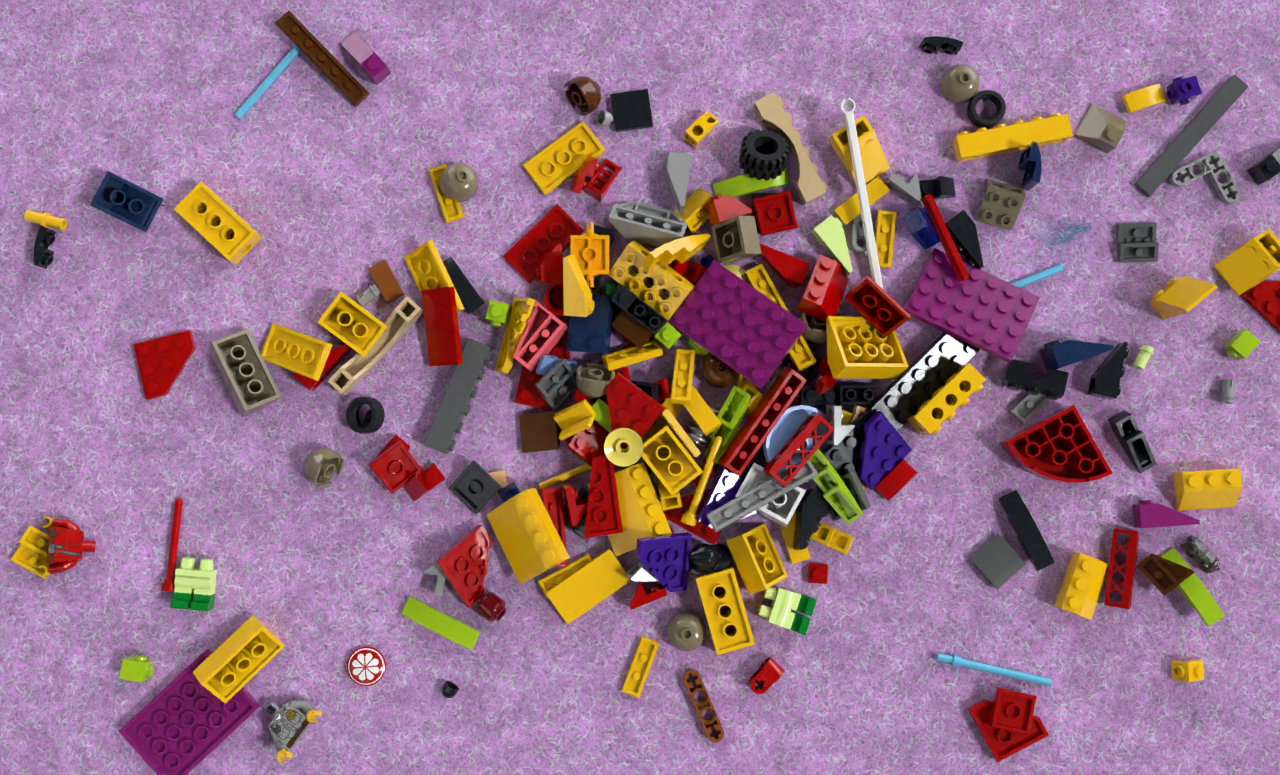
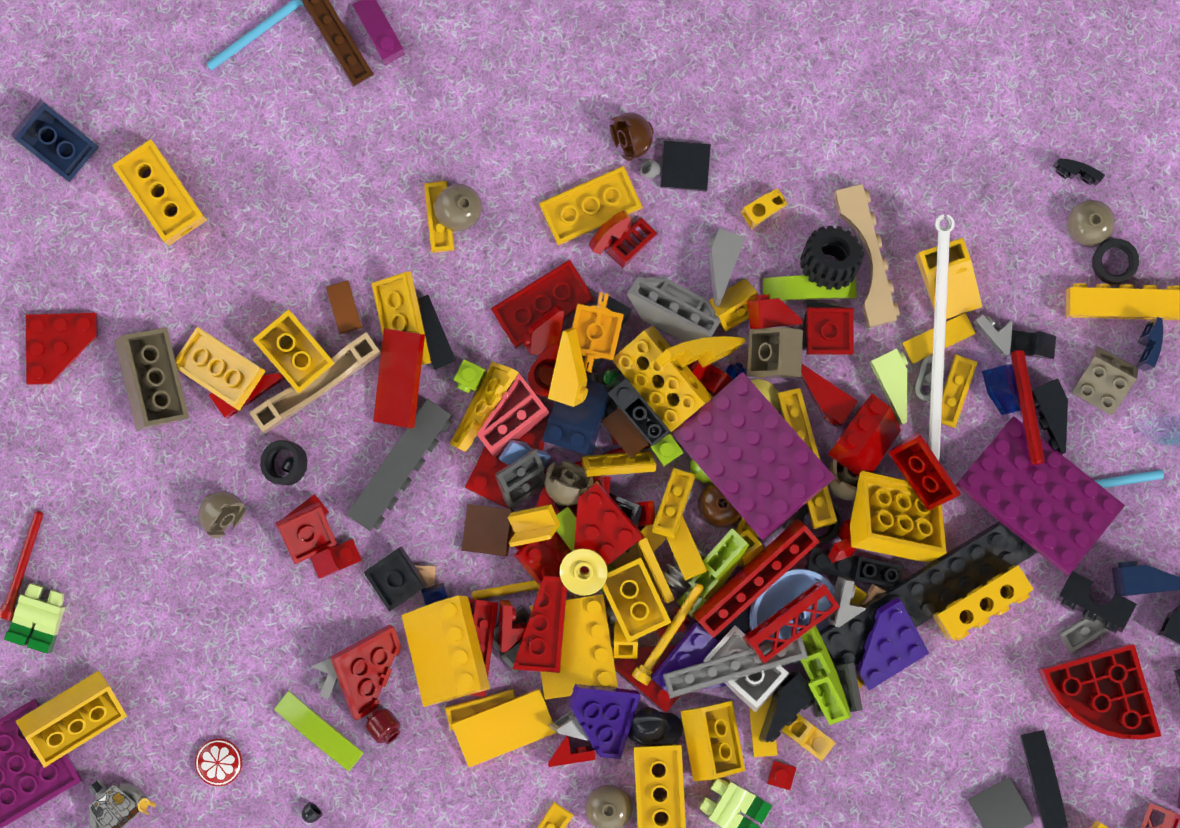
camera: 15 degrees right, 0 degrees up
(369, 295) = (319, 318): light grey pin -> none
(896, 479) = (901, 684): red slope -> none

